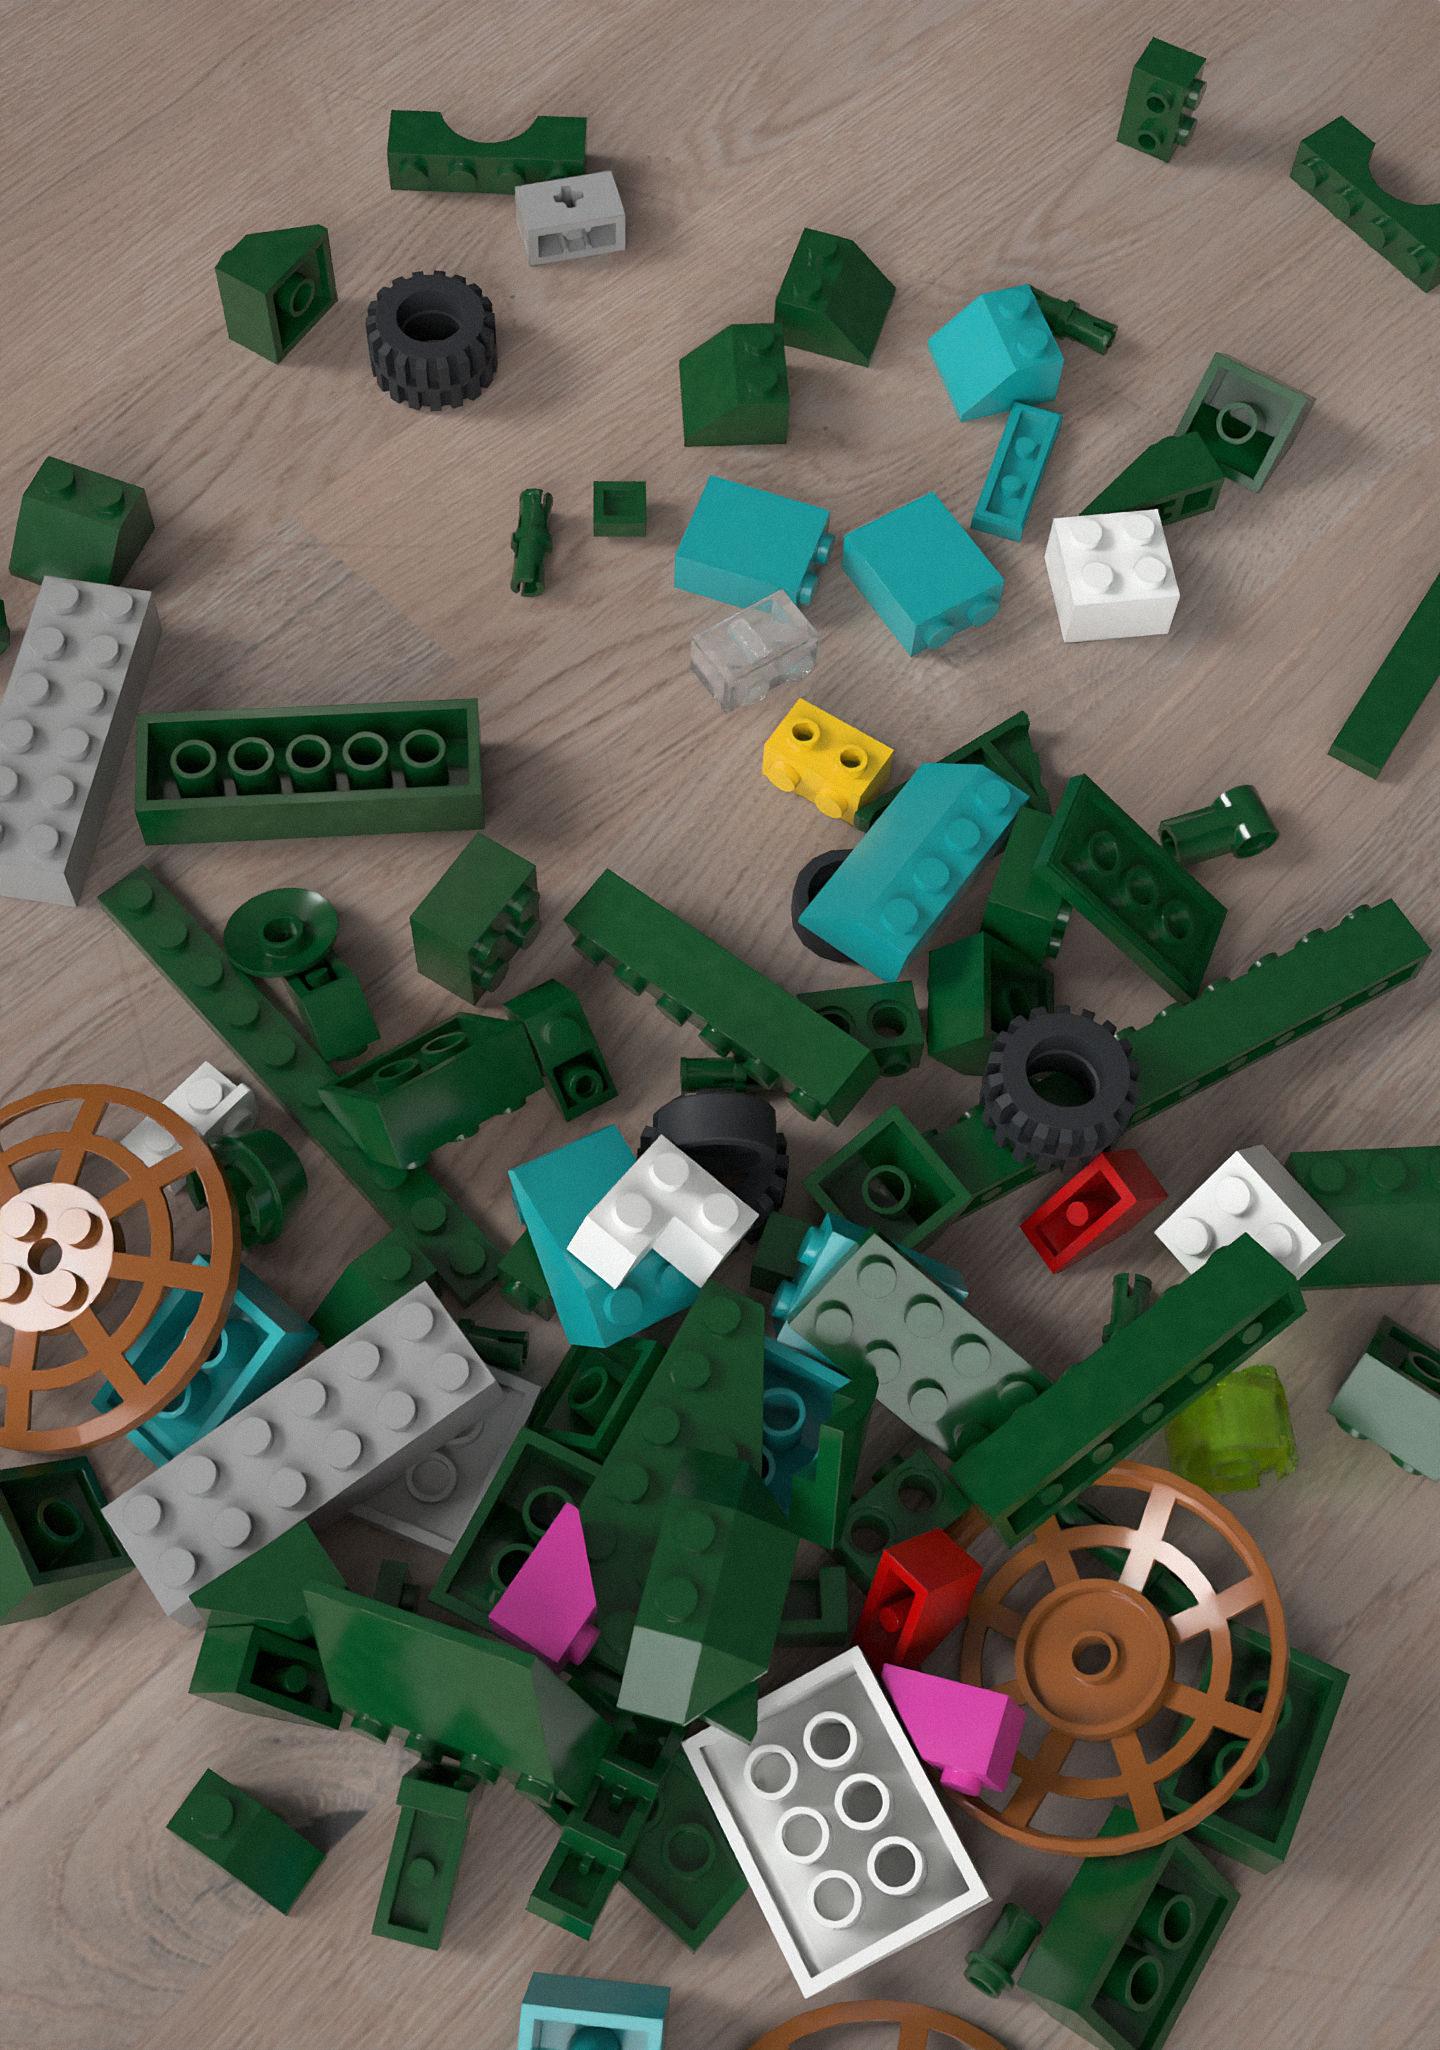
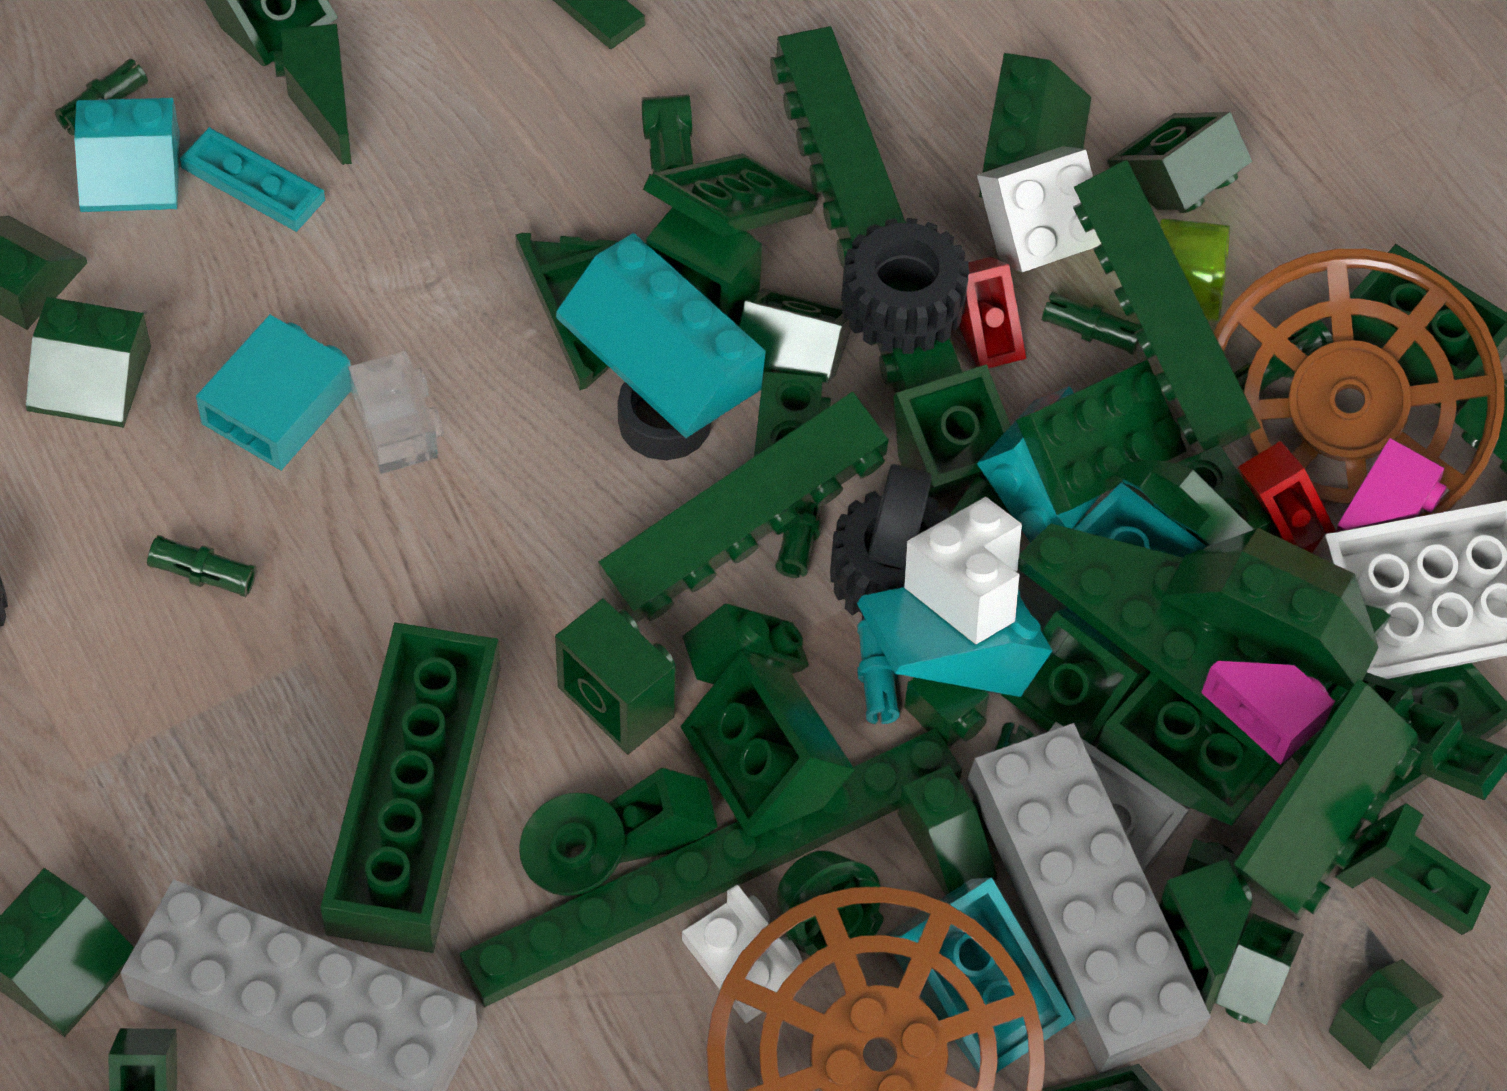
camera: 75 degrees left, 5 degrees down
(619, 508) = (189, 487): dark green plate -> none
(826, 761) = (520, 389): yellow brick -> none
(922, 574) = (349, 271): teal brick -> none
(1111, 576) = (399, 136): white brick -> none

